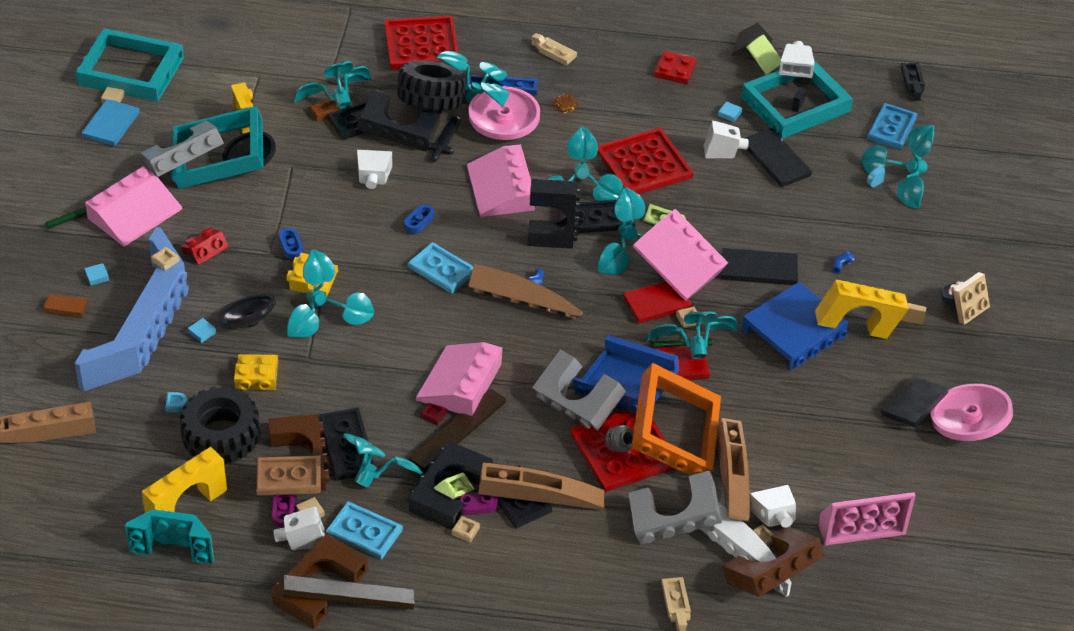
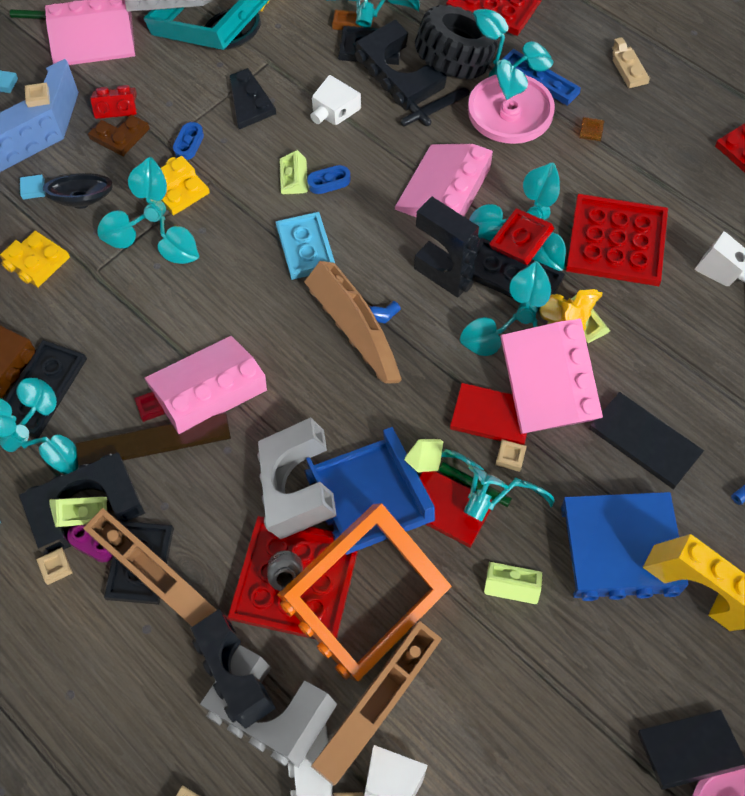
camera: 40 degrees right, 15 degrees up
(234, 269) = (119, 139): none -> reddish brown plate
(307, 196) = (249, 99): none -> black wing
(387, 228) = (293, 173): none -> yellowish green slope
(591, 185) = (521, 236): none -> red plate
(642, 337) = (425, 455): none -> yellowish green slope
(655, 214) = (560, 309): none -> yellow head
(663, 502) = (244, 695): none -> black arch
(750, 381) = (513, 583): none -> yellowish green slope

